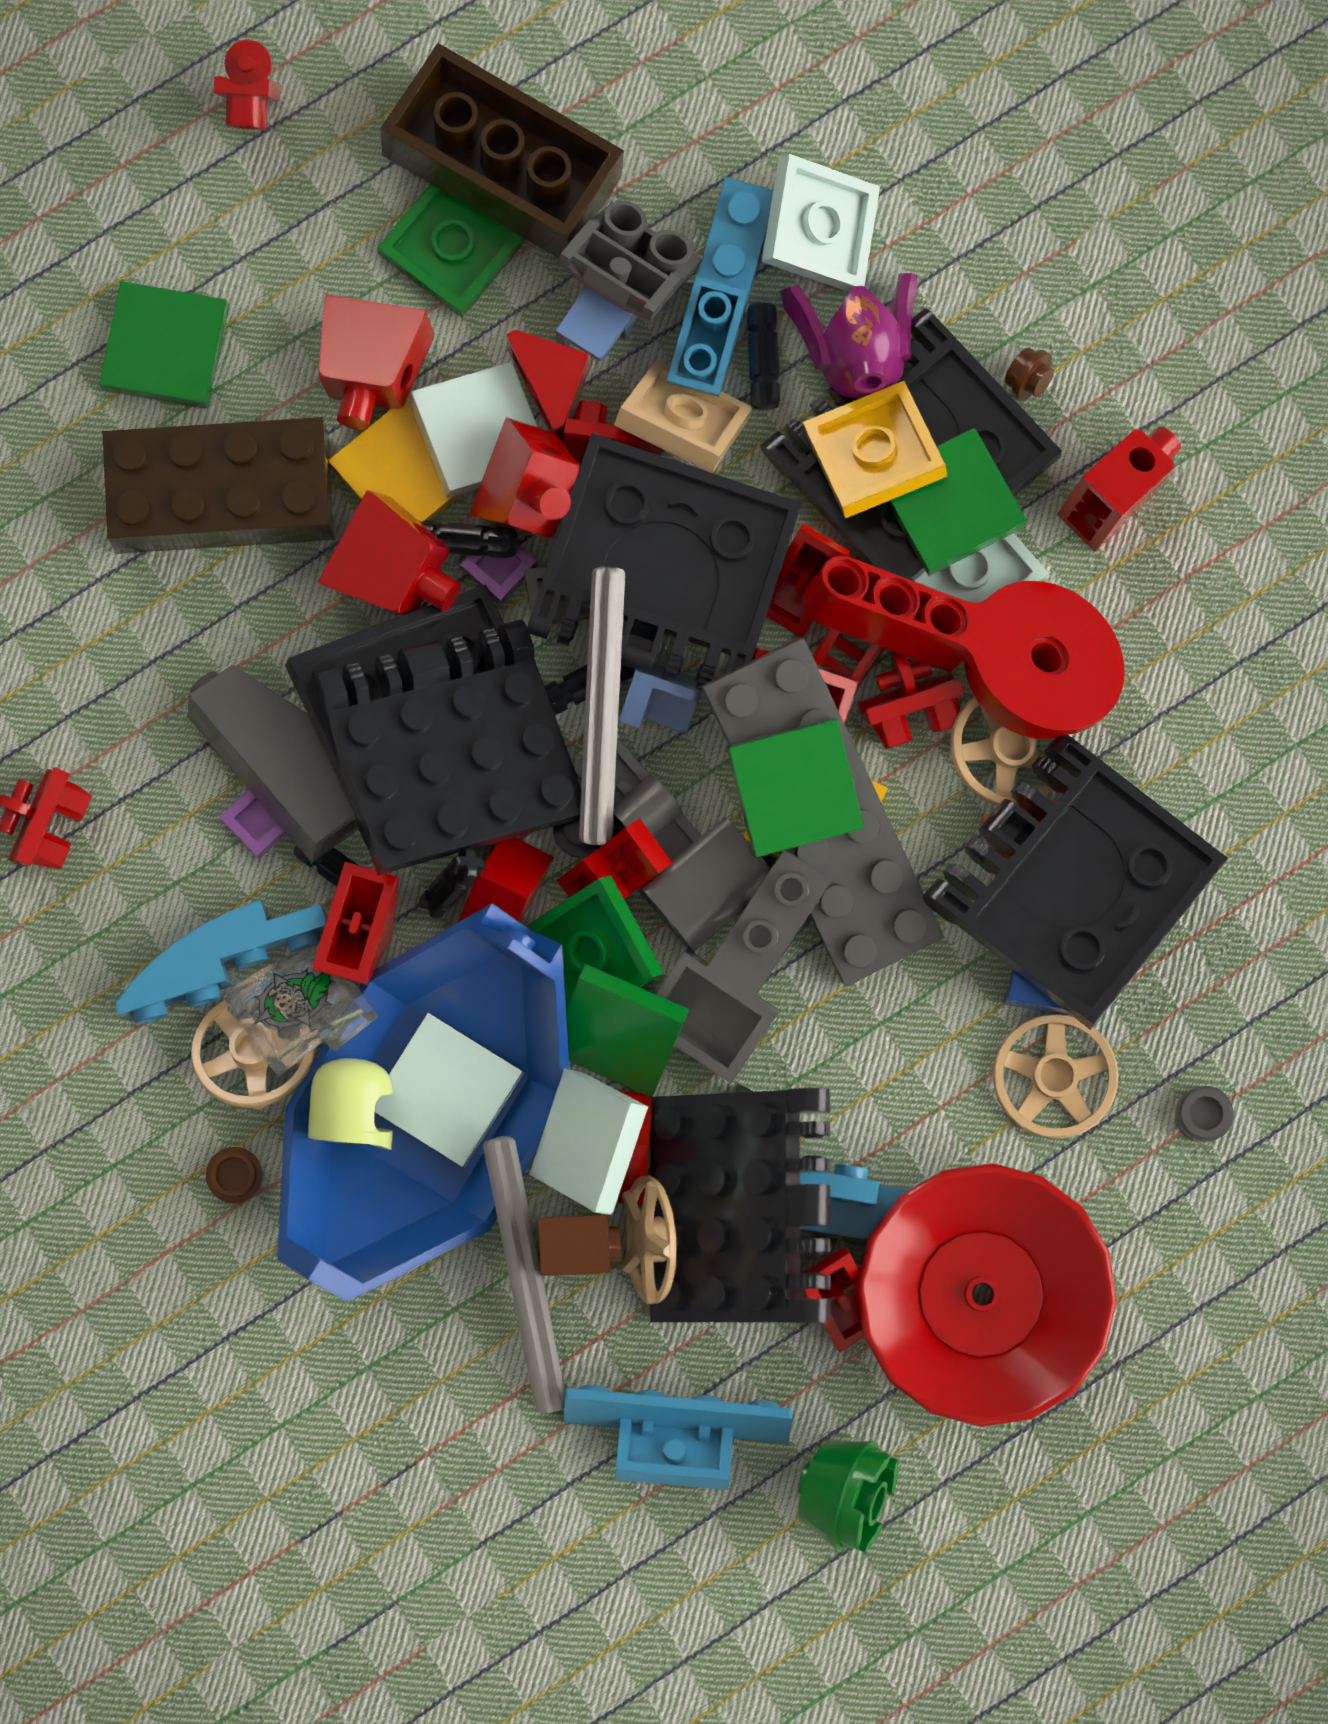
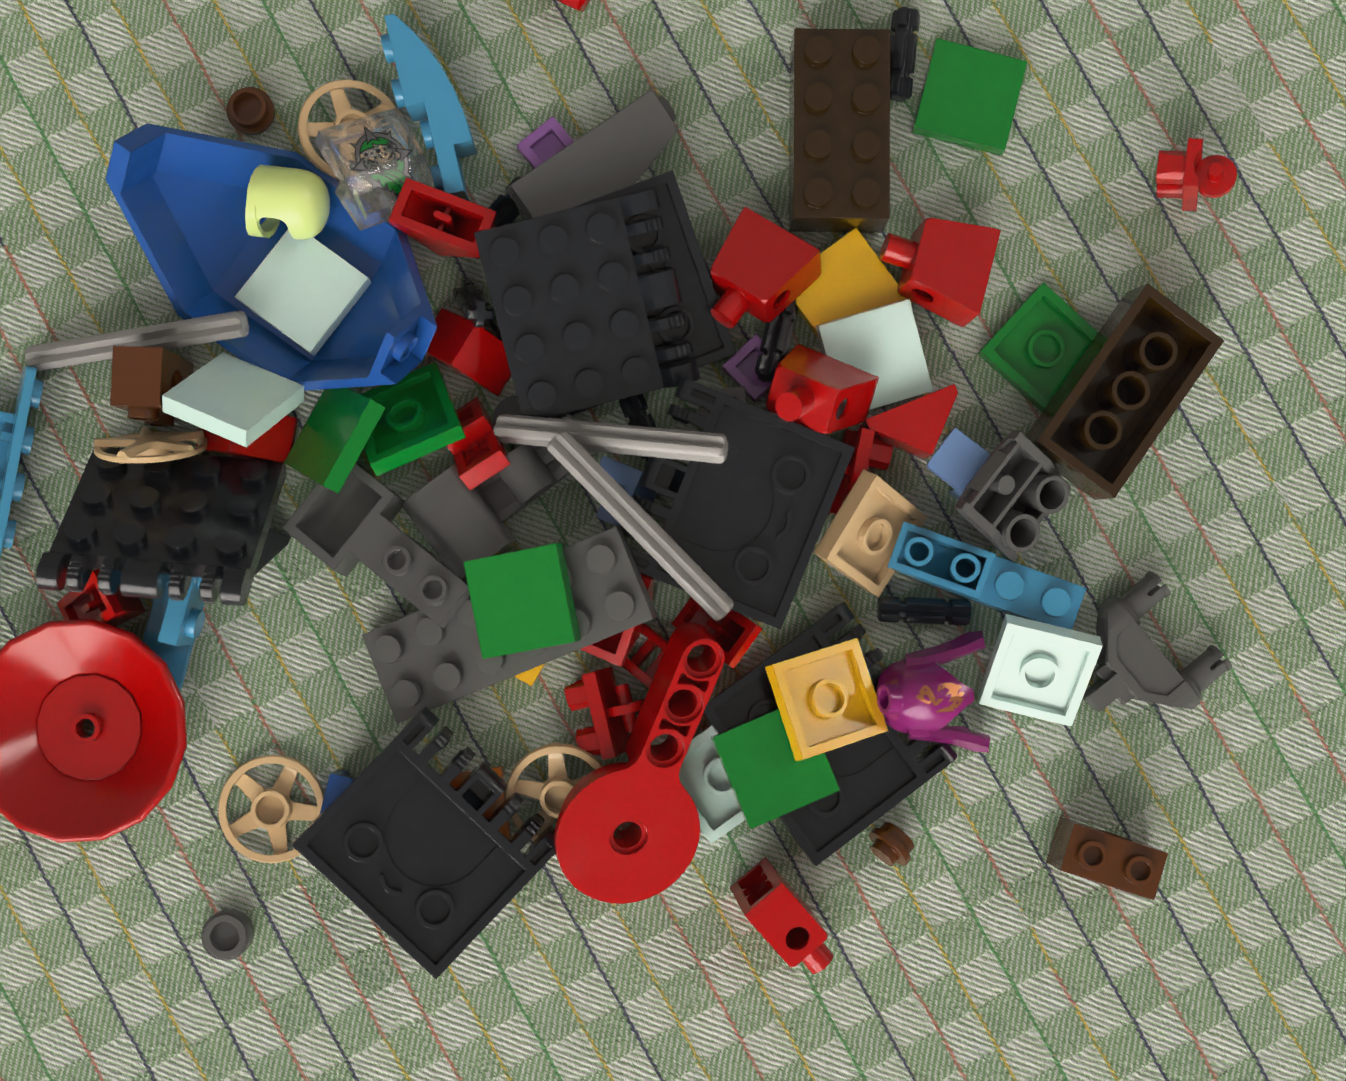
camera: 90 degrees right, 5 degrees up
(82, 422) = (903, 52): none -> black axle
(699, 661) = (640, 525): none -> light grey axle
(804, 121) = (1135, 666): none -> dark grey connector
(1022, 139) = (1107, 858): none -> reddish brown brick

